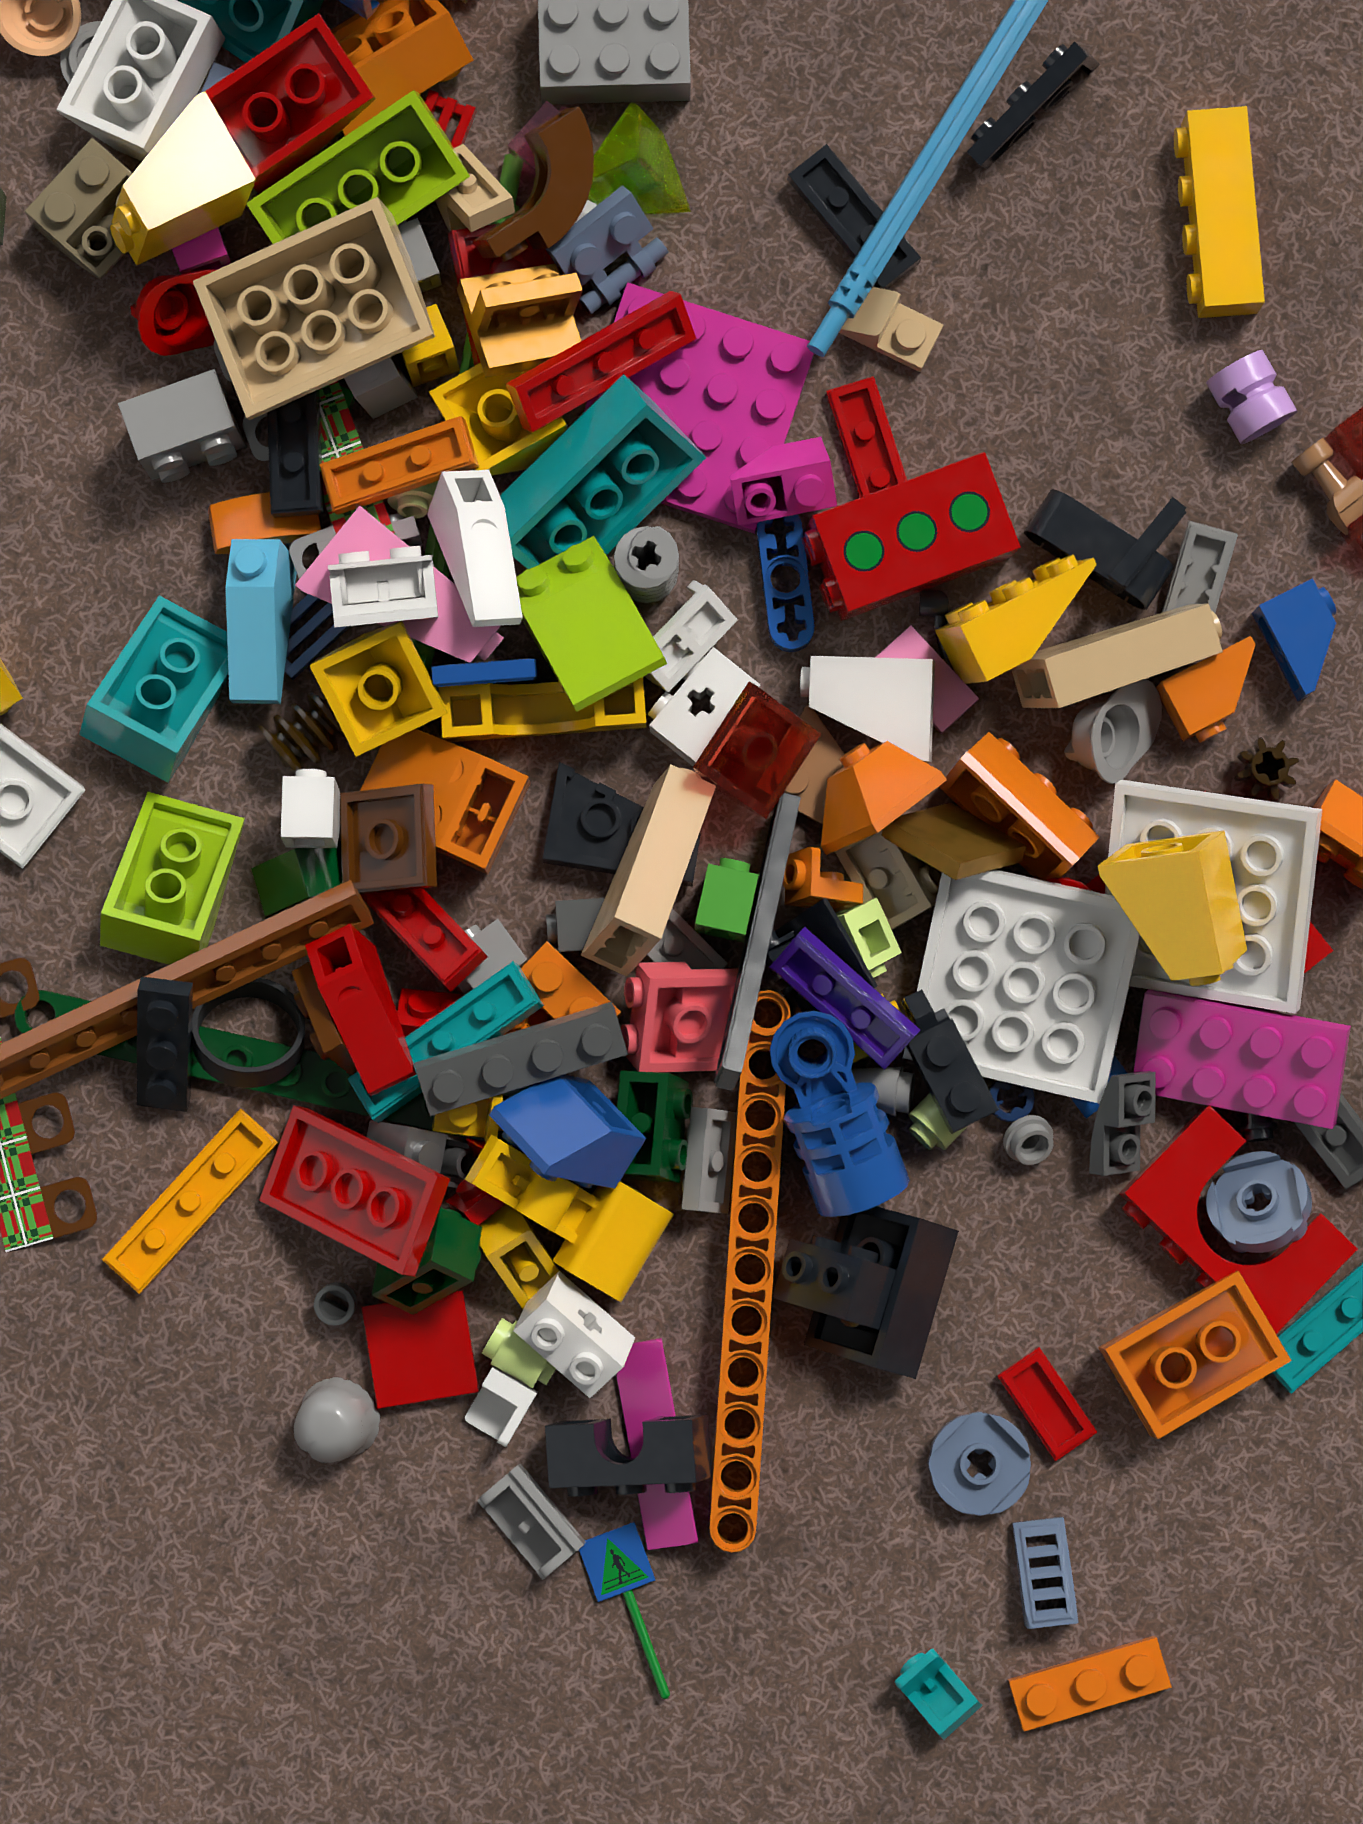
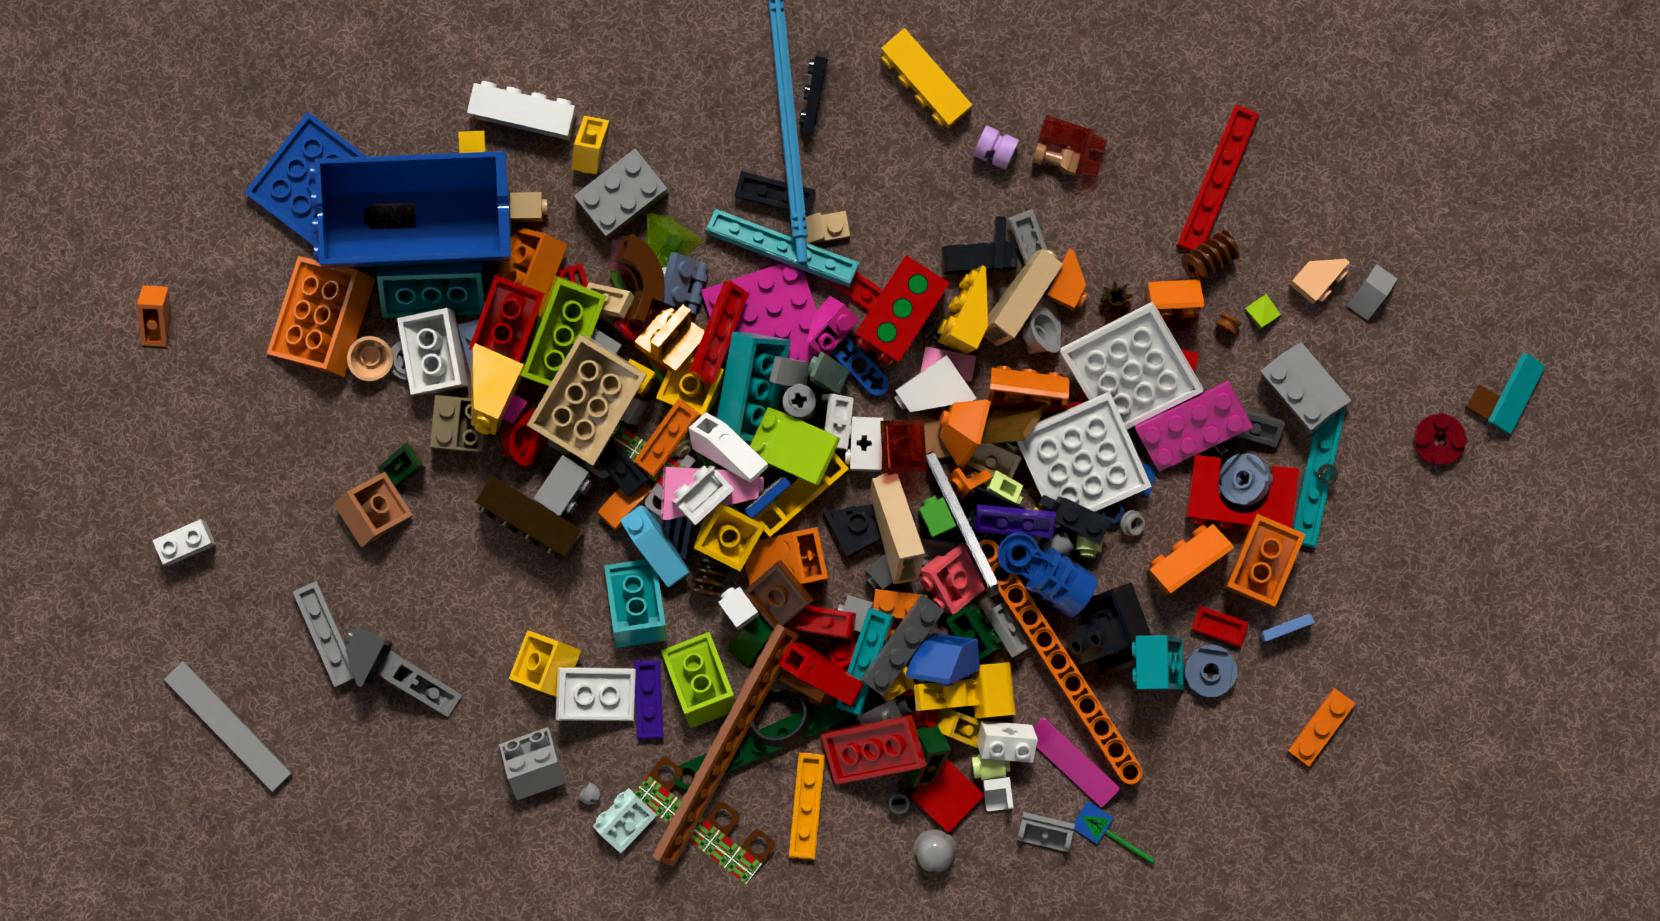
camera: 35 degrees left, 0 degrees up
(71, 853) = (648, 699): none -> dark purple tile
(88, 421) = (530, 517): none -> dark brown brick
(164, 1043) = (750, 748): black plate -> none
(585, 1456) = (1049, 788): black arch -> none
(669, 504) = (789, 371): none -> light grey slope
(723, 550) = (827, 374): none -> sand green slope
(800, 308) = (781, 247): none -> teal tile
(905, 1389) = (1158, 662): none -> teal slope
(937, 1692) = (1262, 776): teal bracket -> none
(1048, 1617) = (1291, 704): sand blue slope -> none
(1078, 1261) = (1189, 558): none -> orange slope
(1118, 1122) = (1162, 481): dark grey slope -> none
(1151, 1485) = (1286, 627): none -> medium blue tile
(1181, 902) = (1123, 381): yellow slope -> none
(1298, 633) = (1088, 231): blue slope -> none

